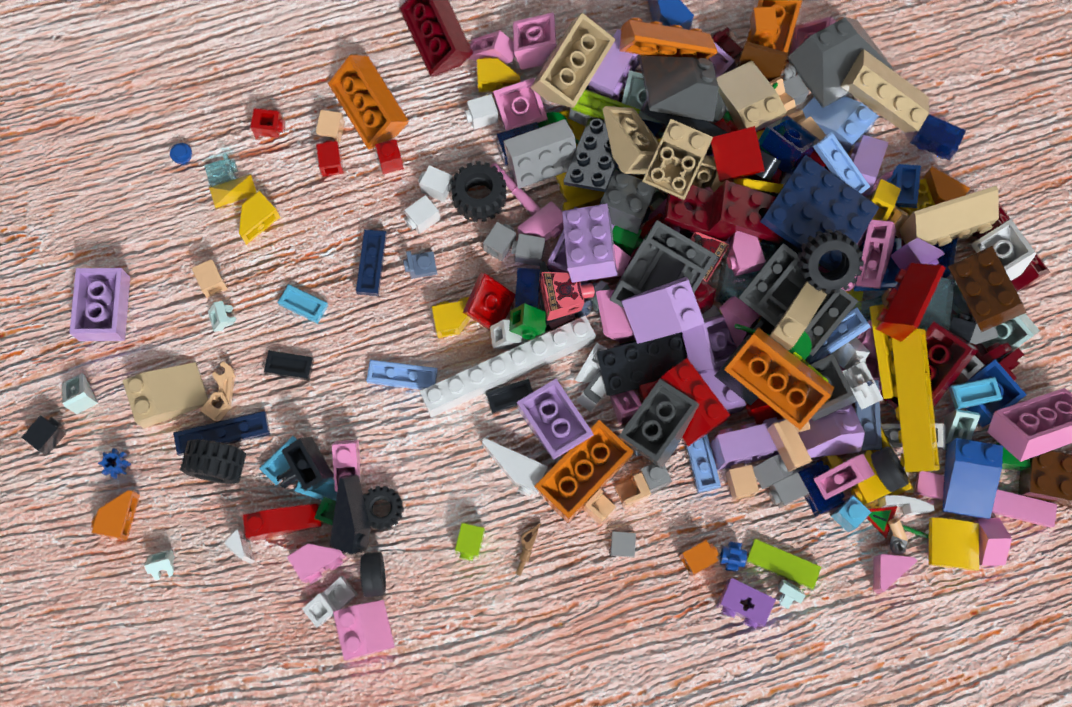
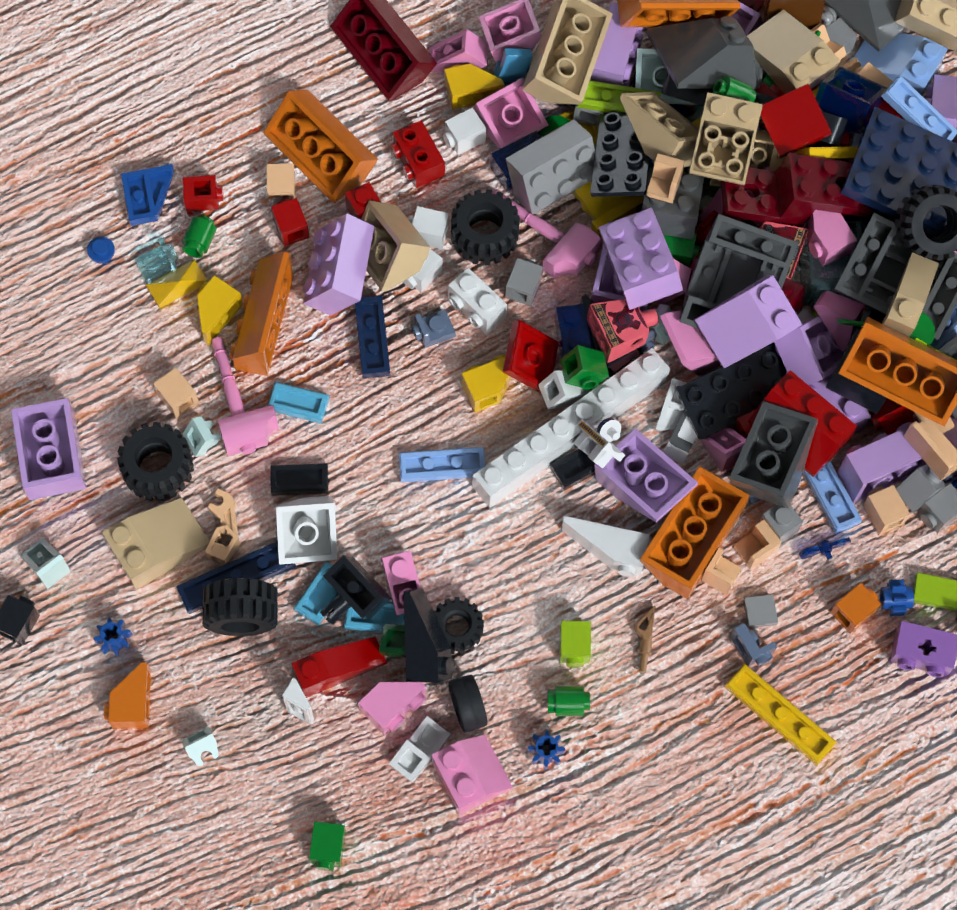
camera: 10 degrees left, 5 degrees down
(167, 318) = (153, 440): none -> black tyre
(225, 115) = (146, 192): none -> blue wing
(238, 666) = (327, 845): none -> green brick
(256, 318) = (243, 430): none -> bright pink piece
(257, 157) = (198, 236): none -> green brick
(281, 408) = (306, 530): none -> white slope
(291, 229) = (263, 314): none -> orange slope
(355, 200) = (338, 264): none -> lavender brick
(398, 192) = (396, 246): none -> tan slope
(423, 617) = (553, 746): none -> blue gear
(442, 123) = (418, 154): none -> red brick
(453, 587) = (568, 700): none -> green brick
(459, 250) = (477, 301): none -> white brick
(524, 384) = (607, 431): none -> white hips
(528, 249) = (562, 285): light grey brick -> none
(530, 65) = (513, 65): none -> dark azure slope
(605, 569) = (747, 645): none -> sand blue bracket
(619, 632) = (780, 714): none -> yellow tile
(624, 182) = (665, 178): none -> light nougat panel
(685, 503) = (824, 548): none -> clear blue piece
(694, 120) = (734, 88): none -> green brick

